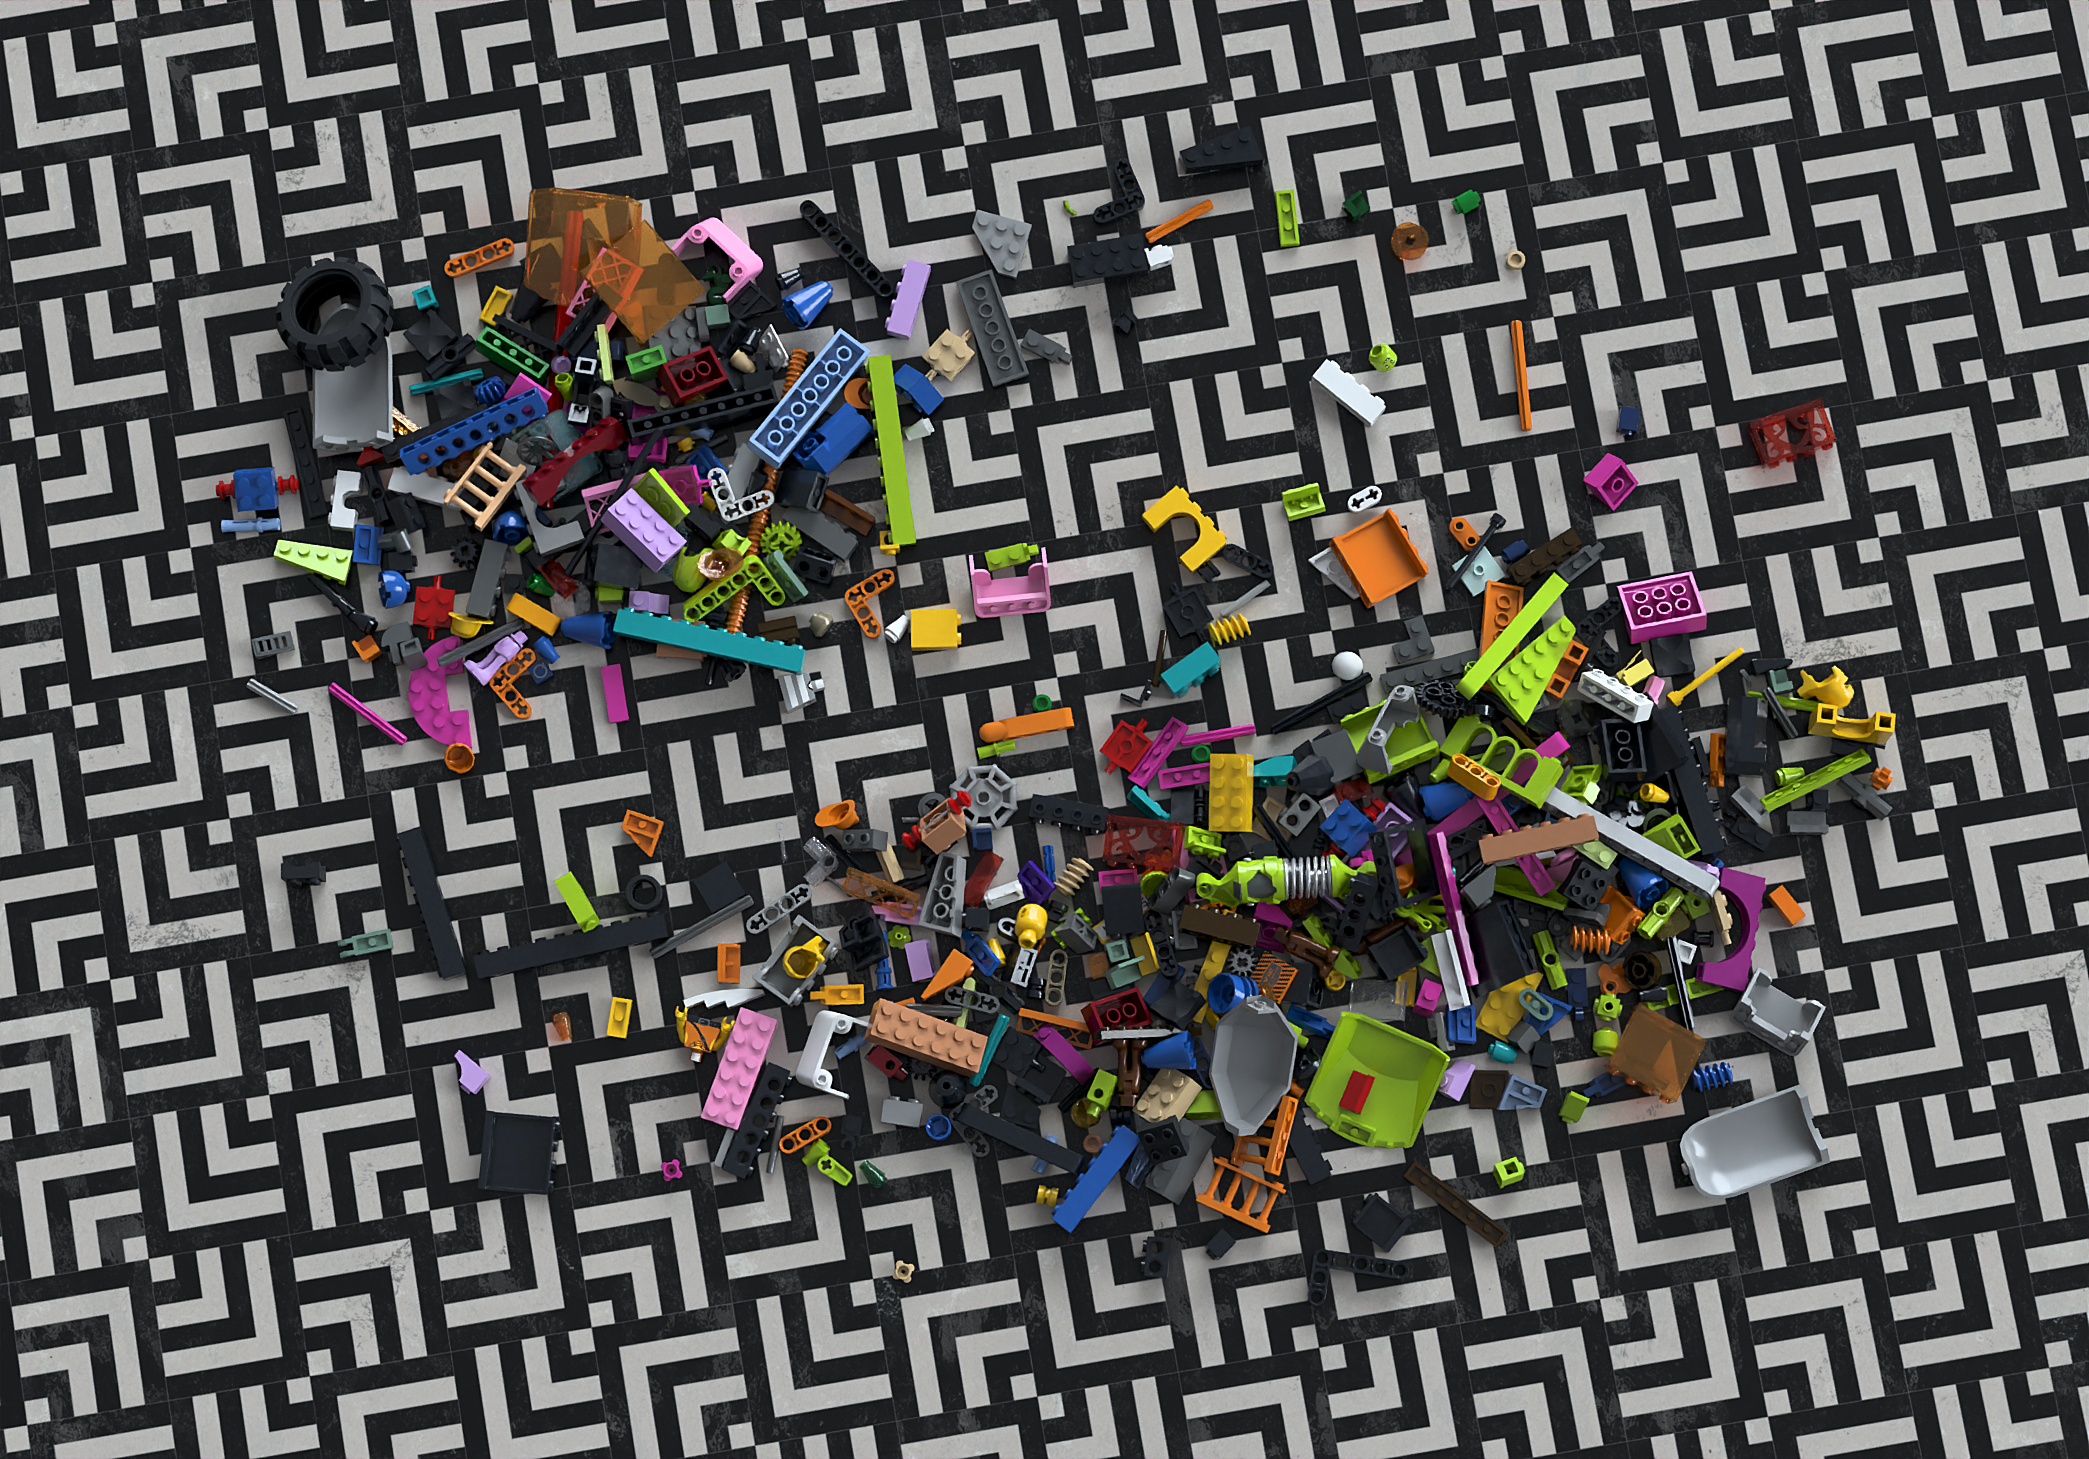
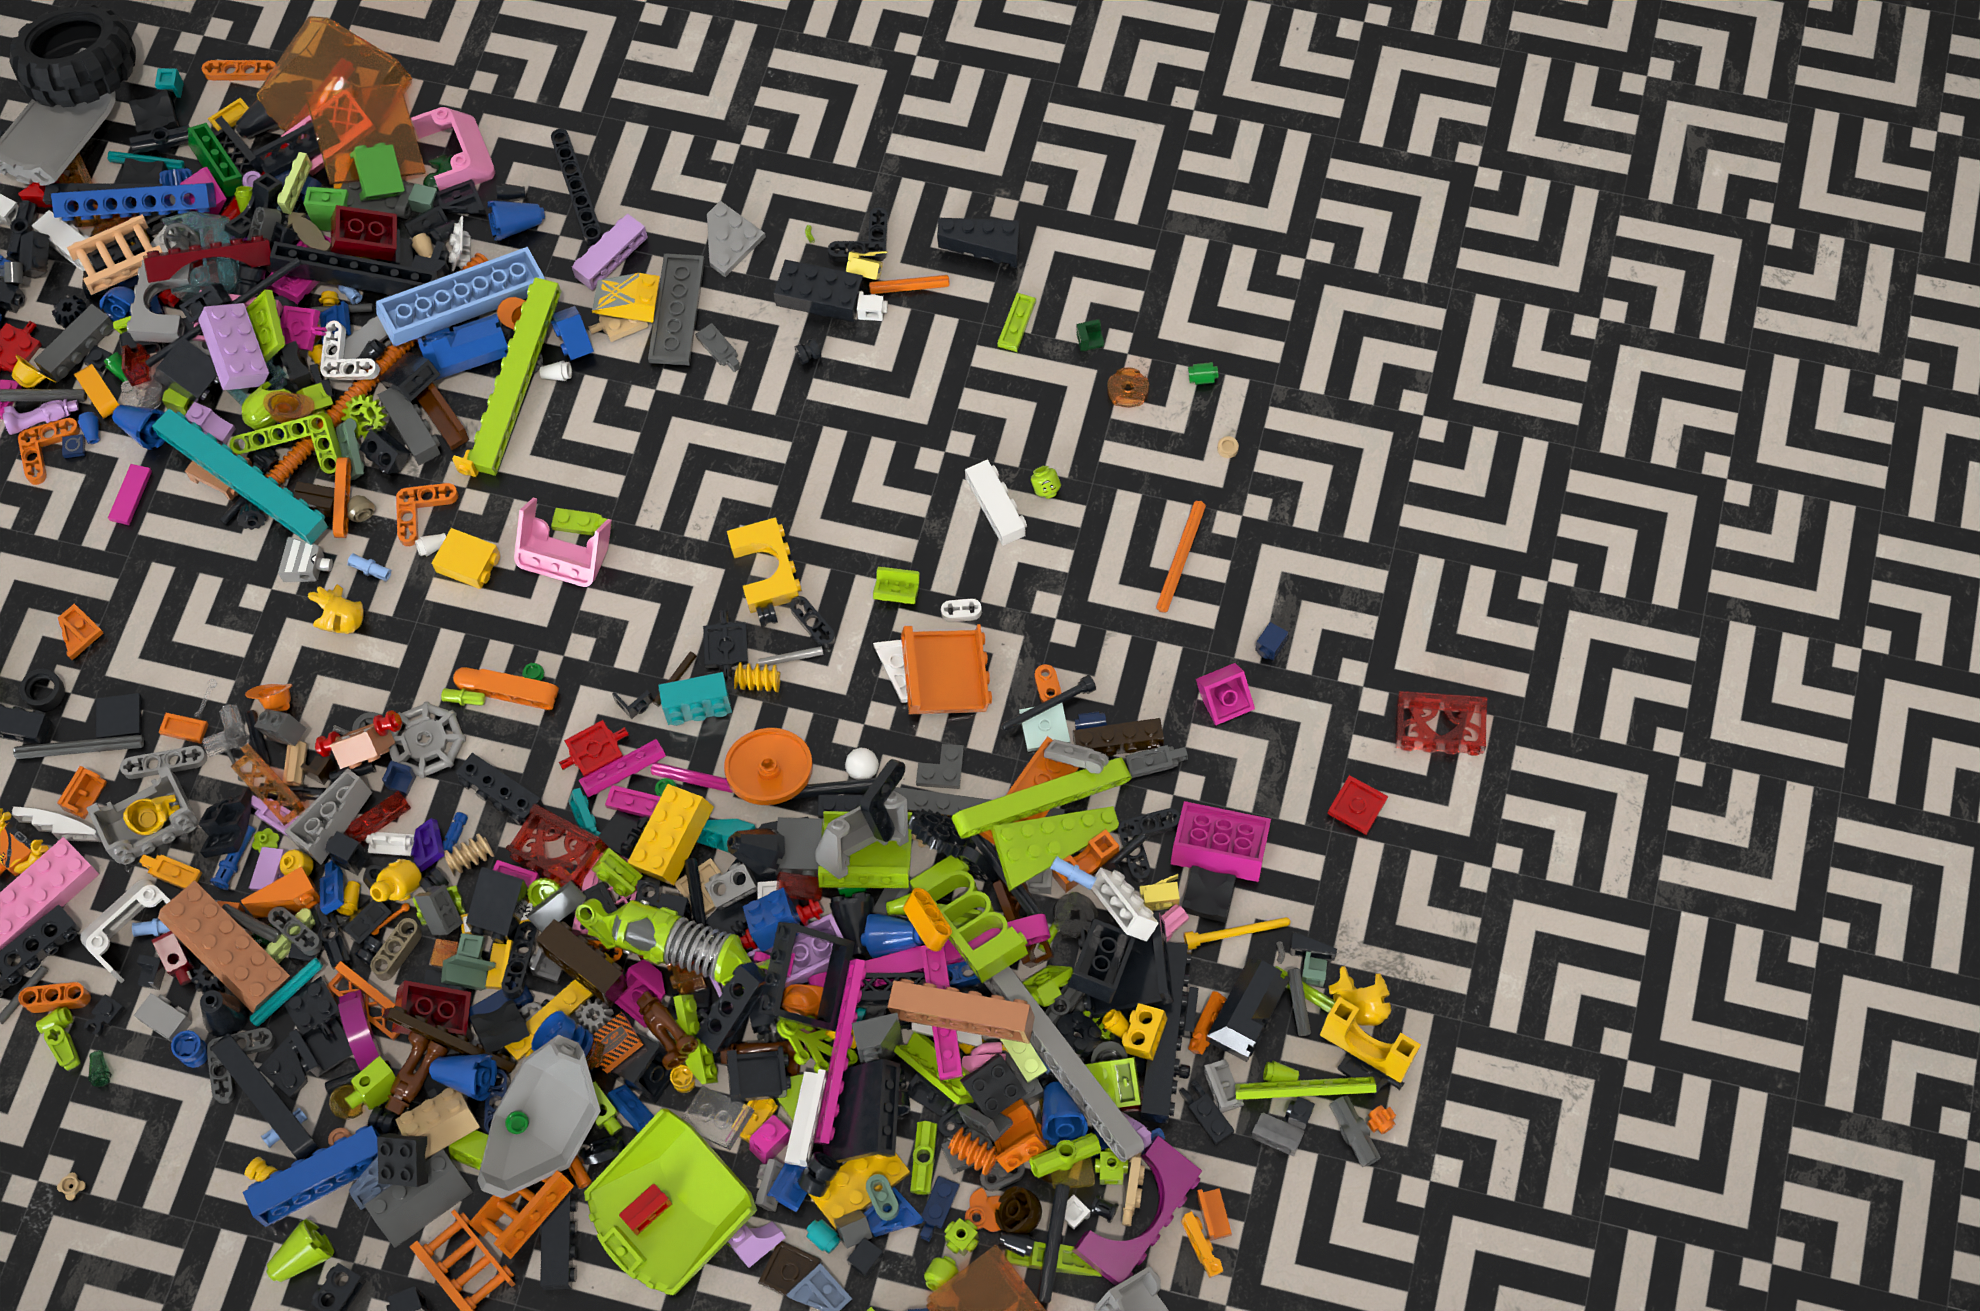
camera: 25 degrees right, 15 degrees down
(598, 502) = (210, 296): none -> black brick
(674, 313) = (377, 171): none -> bright green panel
(778, 873) = (183, 728): none -> orange tile
(802, 621) = (341, 497): none -> orange beam
(856, 671) = (369, 567): none -> light blue pin
(859, 722) = (339, 613): none -> yellow piece
(869, 1082) = (152, 972): none -> black panel
(945, 944) = (293, 860): none -> yellow head
(949, 337) = (627, 296): none -> yellow slope
(1112, 1242) = (300, 1252): none -> lime cone
(1136, 222) = (863, 266): none -> light yellow piece
(1231, 1072) = (516, 1122): none -> green plate
(1277, 701) = (768, 766): none -> orange dish
(1393, 707) = (873, 800): none -> black beam
(1481, 1009) = (818, 1175): none -> black wheel
(1521, 589) = (1076, 756): none -> light grey hinge
(1565, 687) = (1073, 873): none -> light blue pin
(1682, 790) = (1150, 1032): none -> yellow brick
(1755, 531) = (1357, 805): none -> red plate
(1787, 933) = (1201, 1245): none -> light orange hinge

